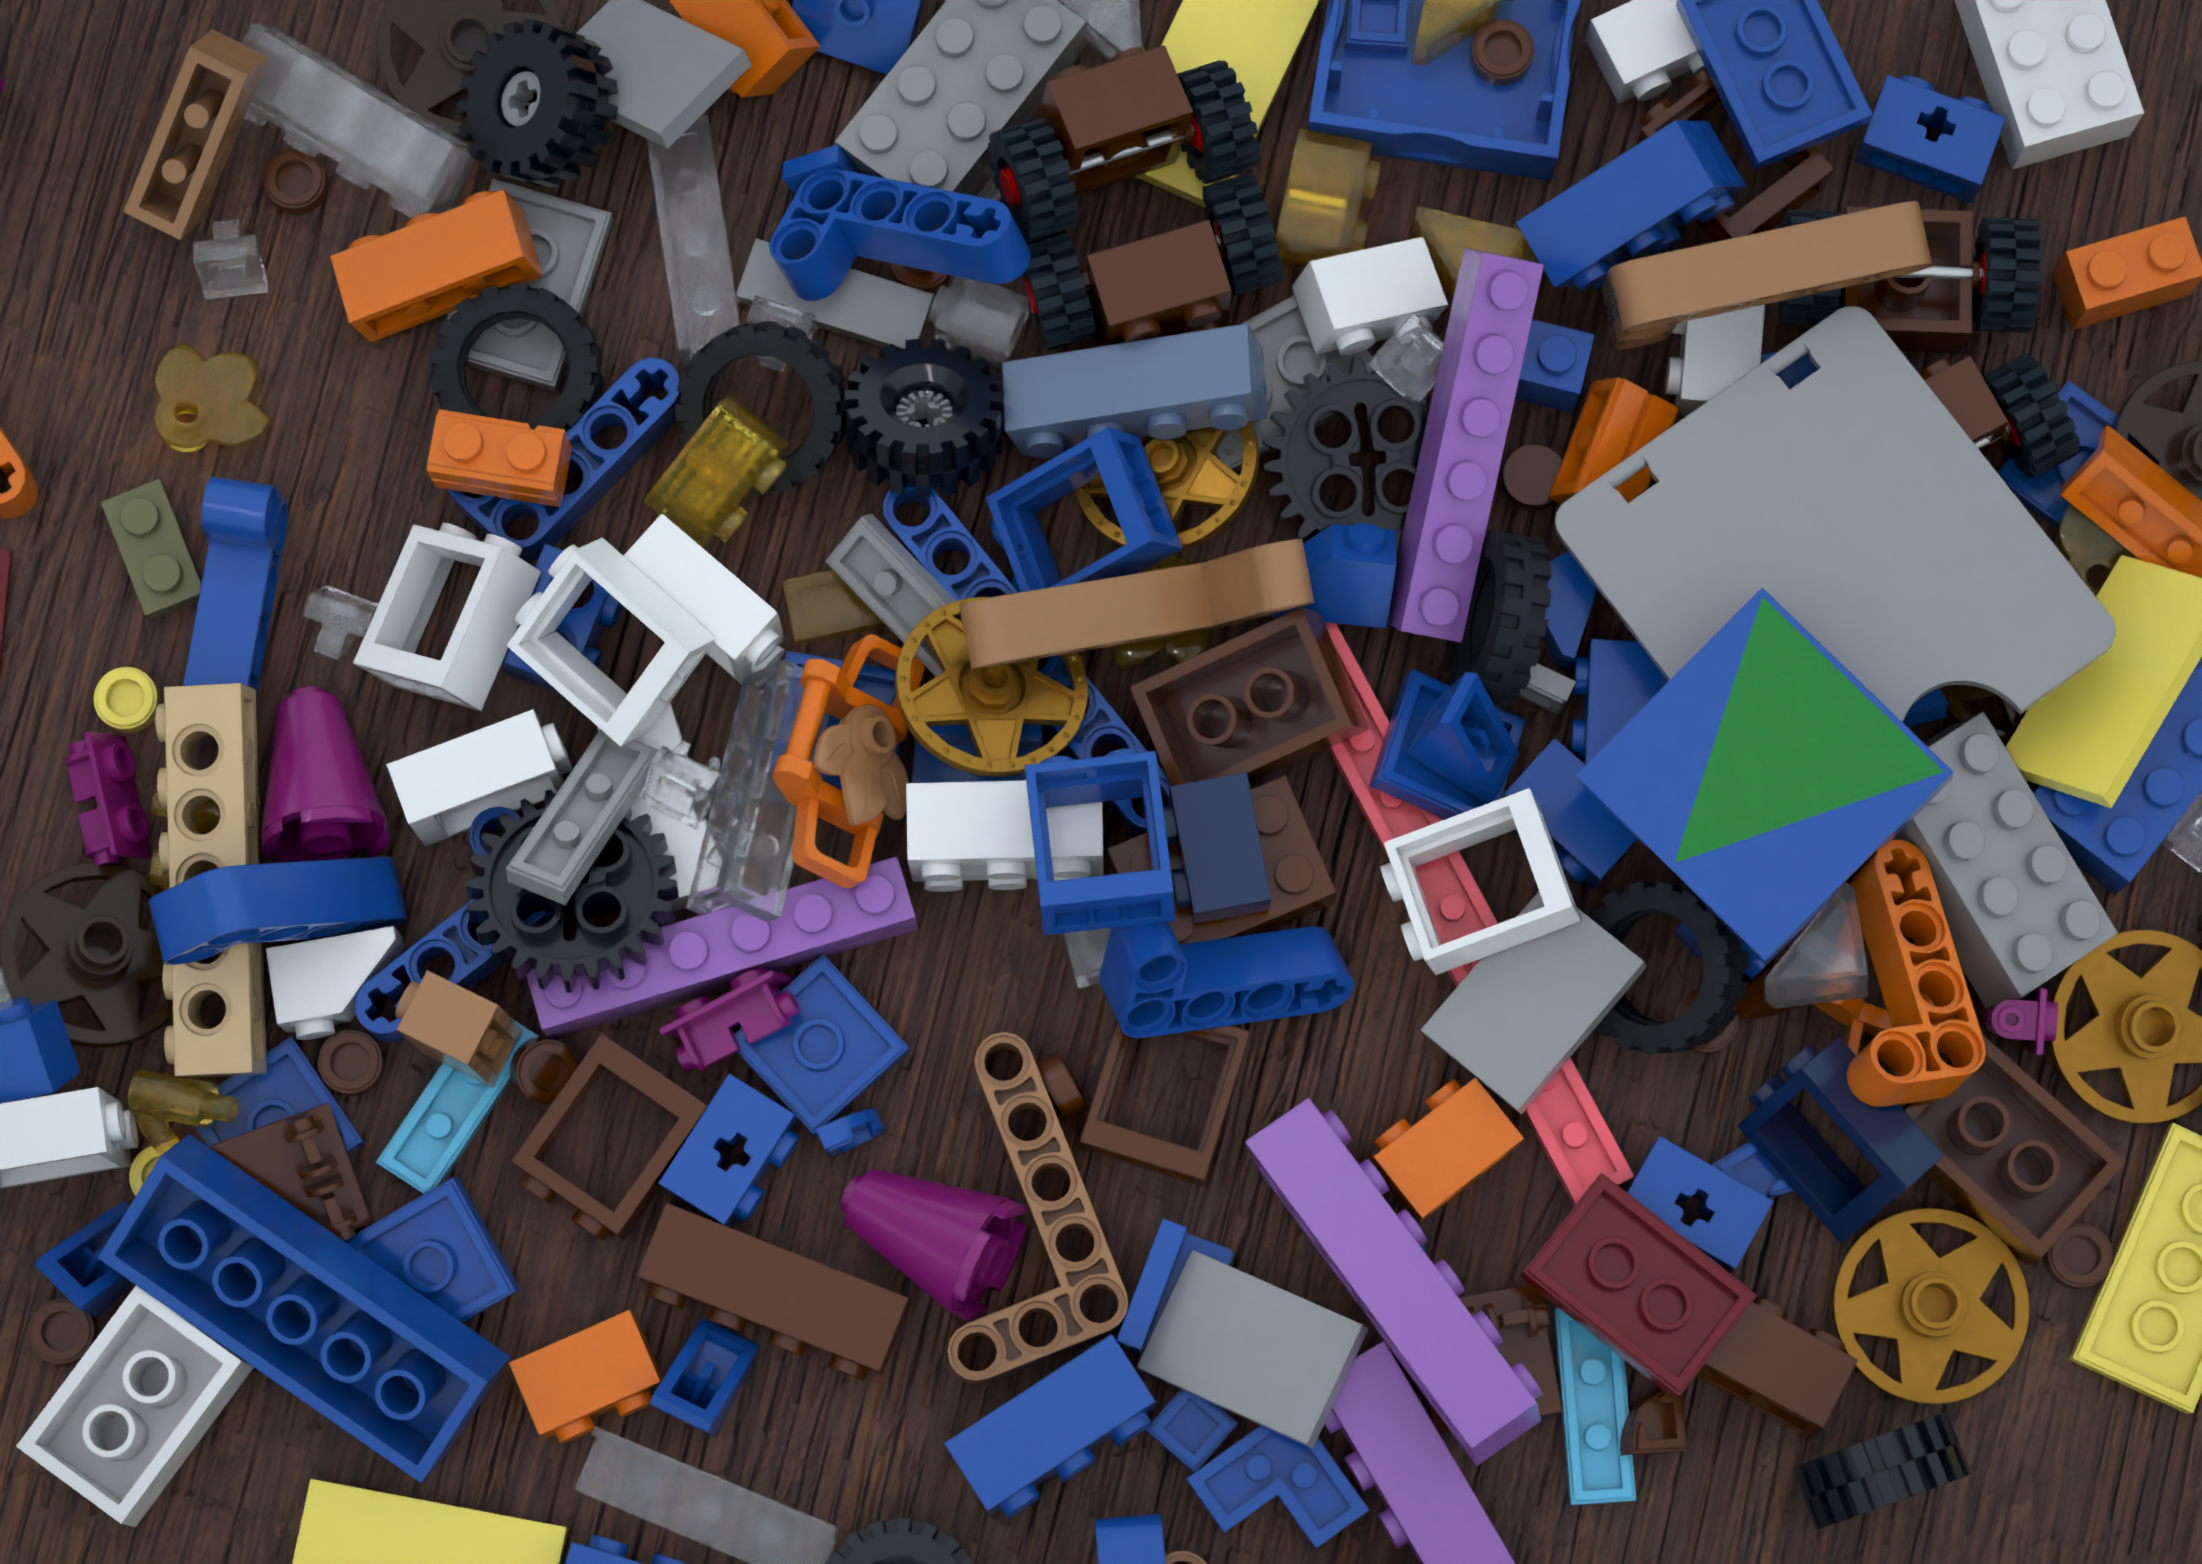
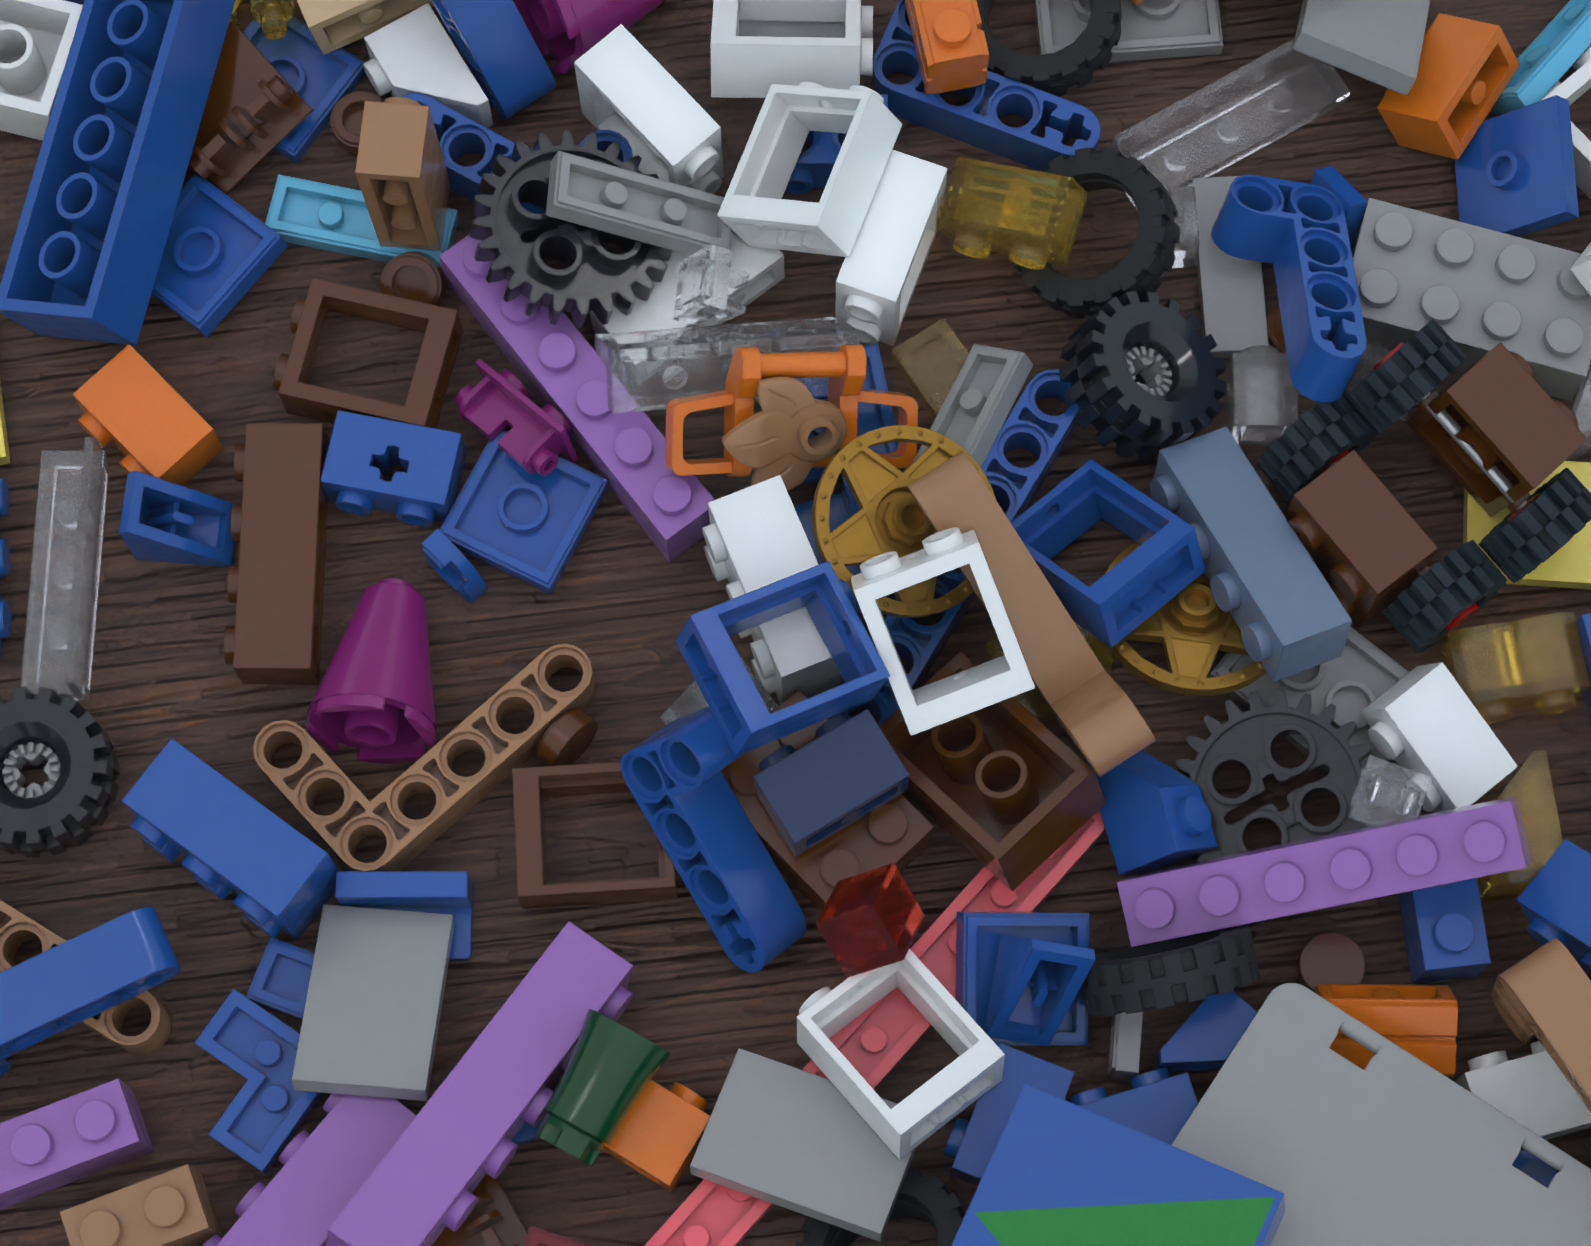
camera: 70 degrees right, 5 degrees down
(1179, 698) = (965, 690): none -> white window
(1360, 861) = (870, 920): none -> clear red brick
(1419, 1165) = (599, 1087): none -> dark green plant

